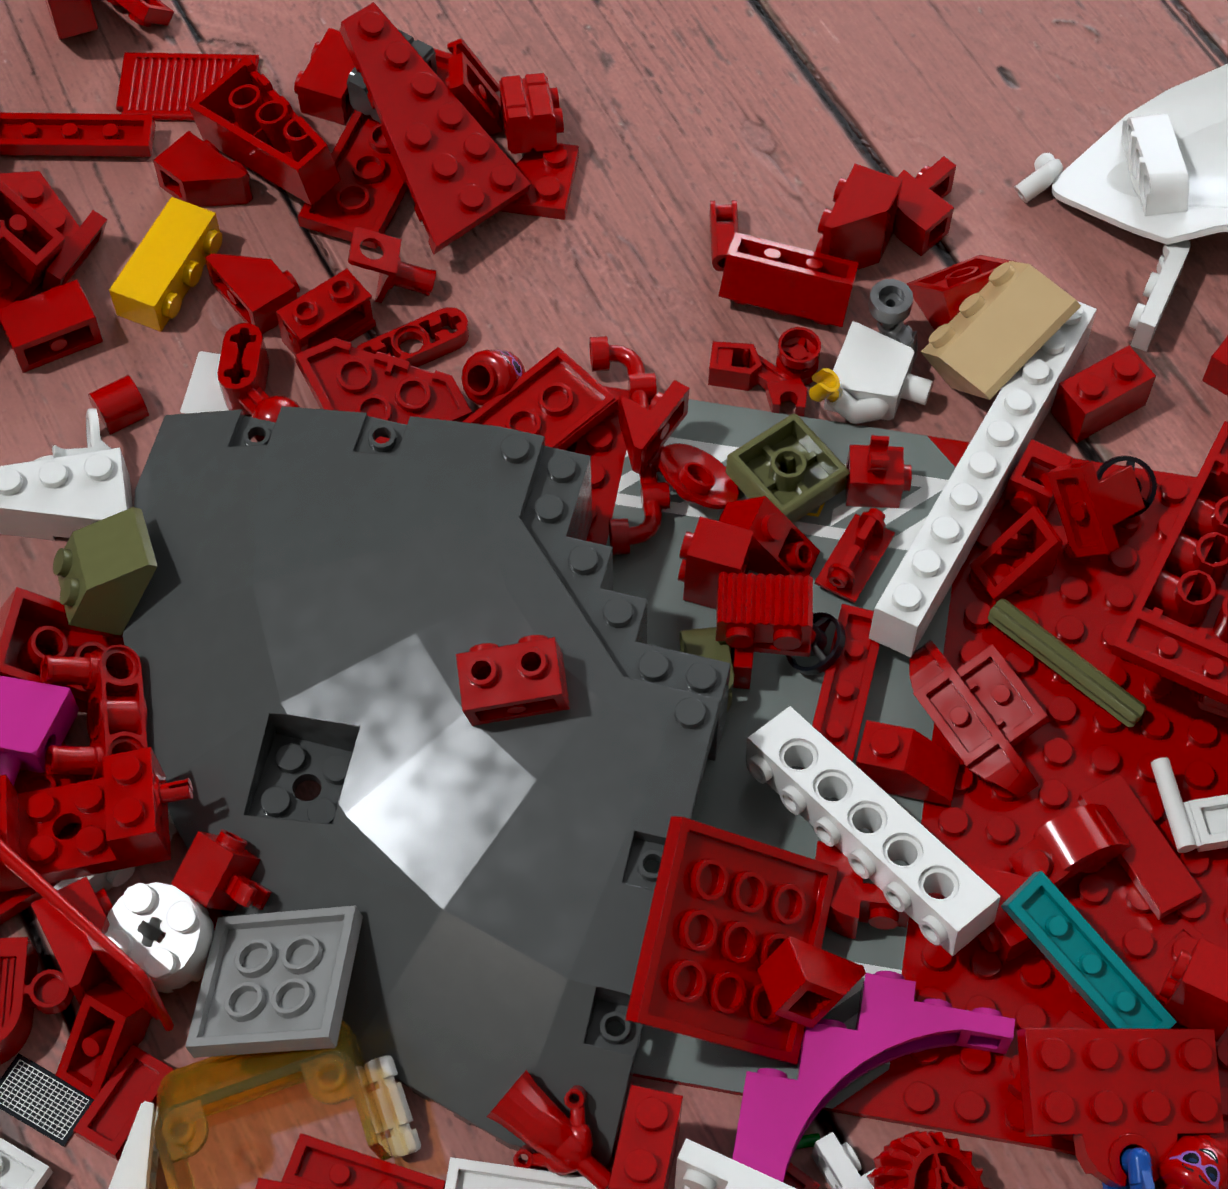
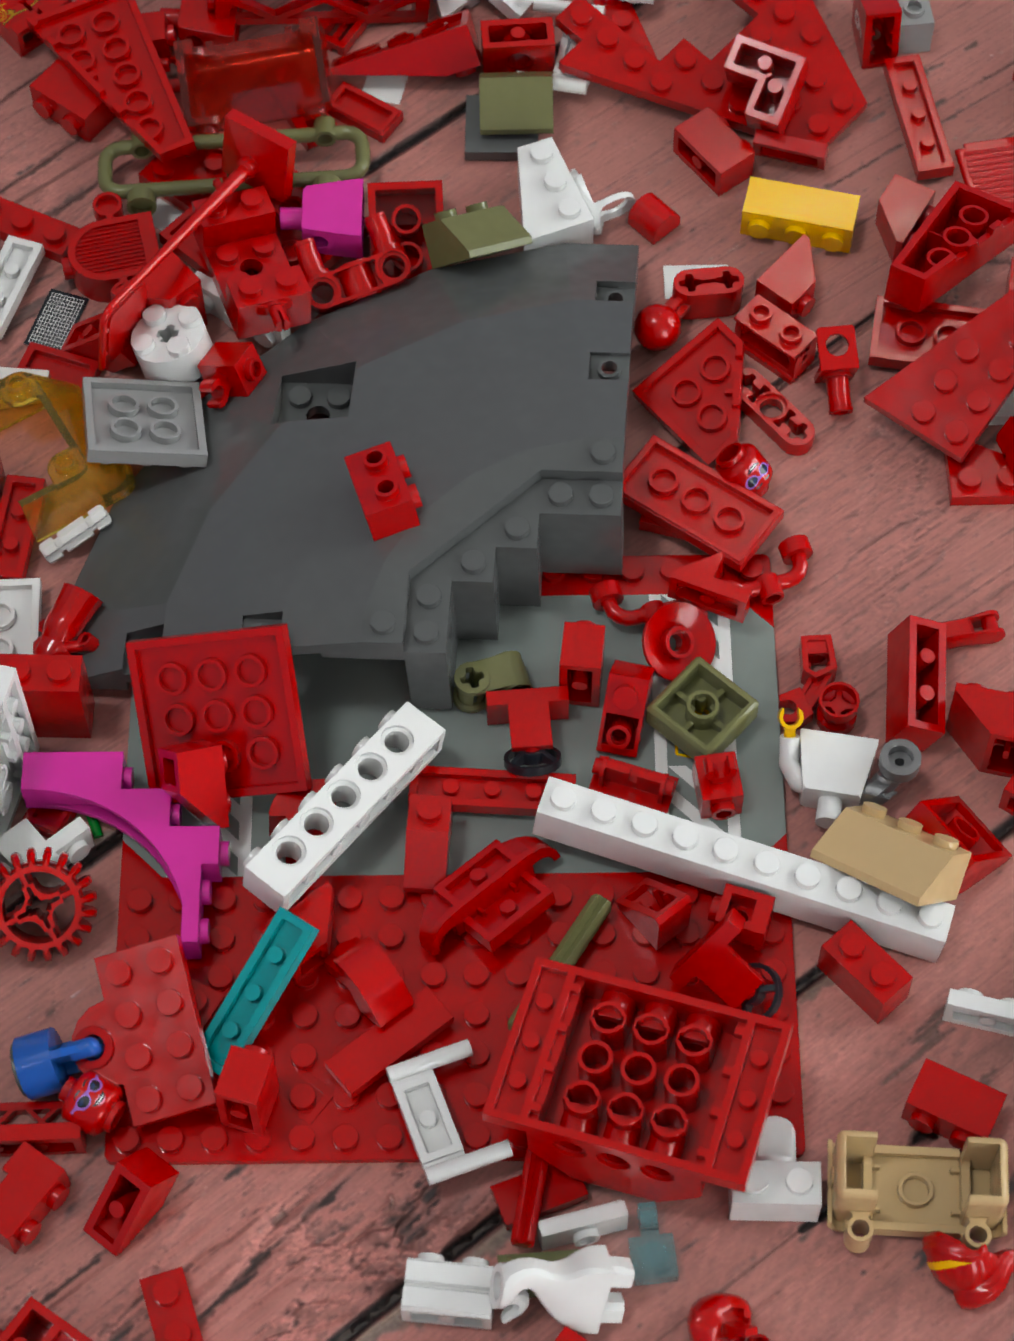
camera: 80 degrees right, 0 degrees up
(764, 610) = (534, 697): red brick -> none

